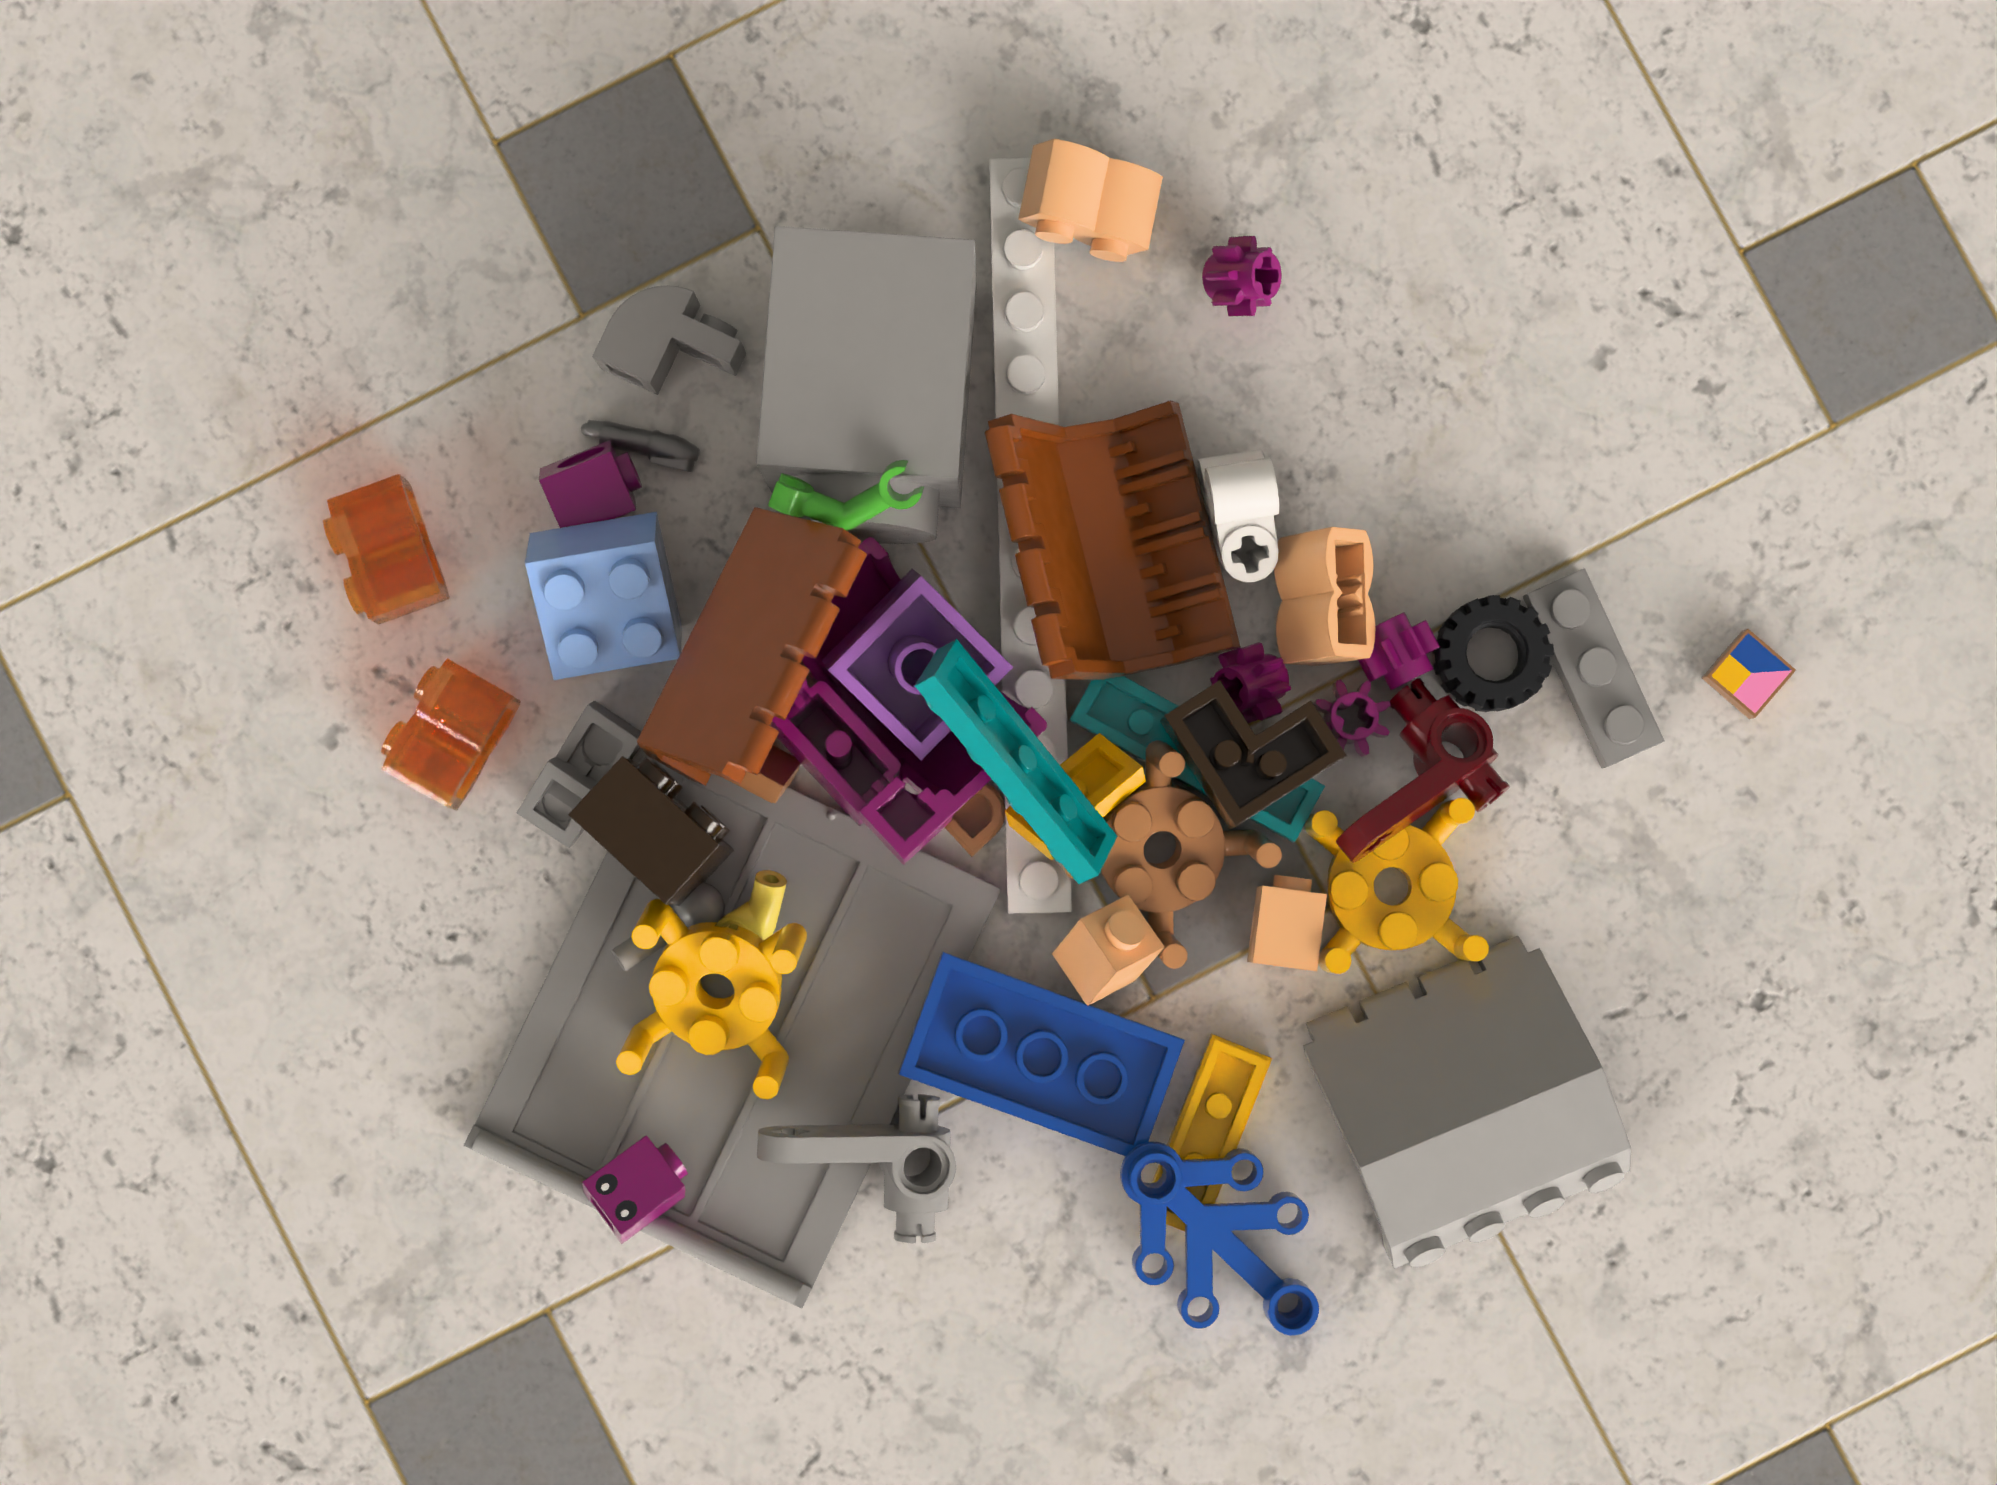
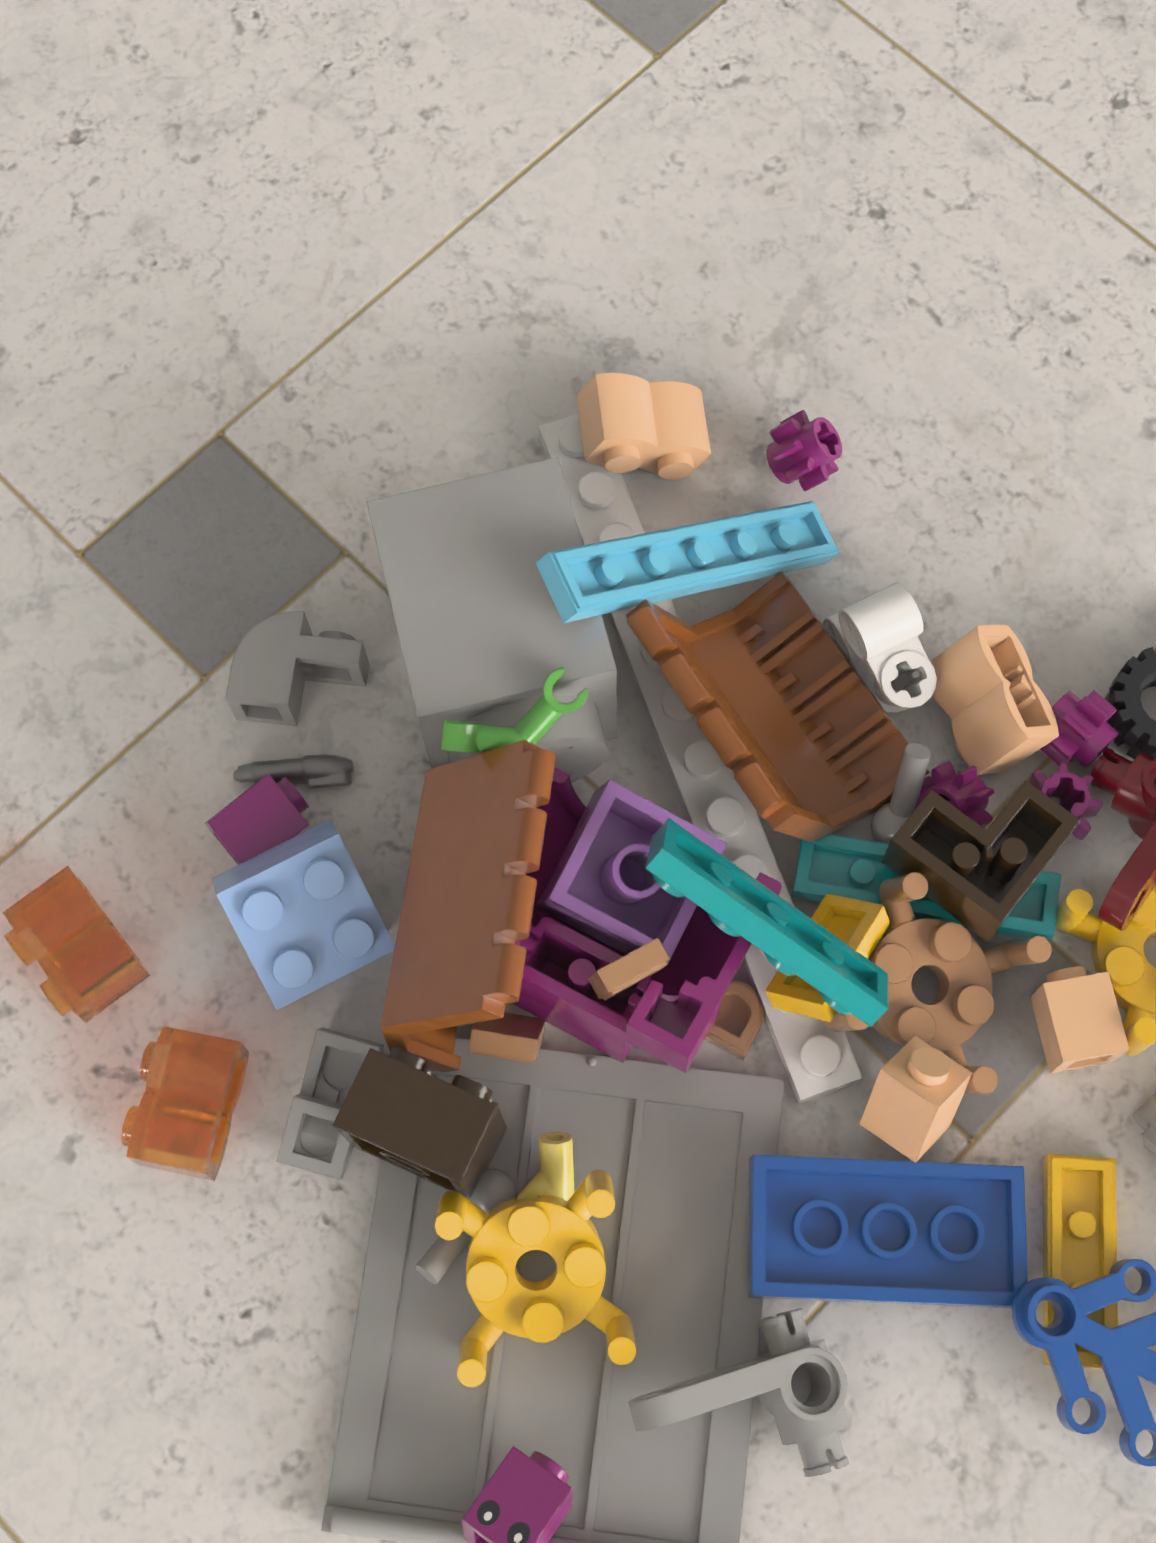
camera: 15 degrees left, 15 degrees down
(878, 762) = (629, 969): none -> medium nougat tile
(1073, 374) = (684, 560): none -> medium azure tile
(1195, 676) = (893, 815): none -> light grey bar

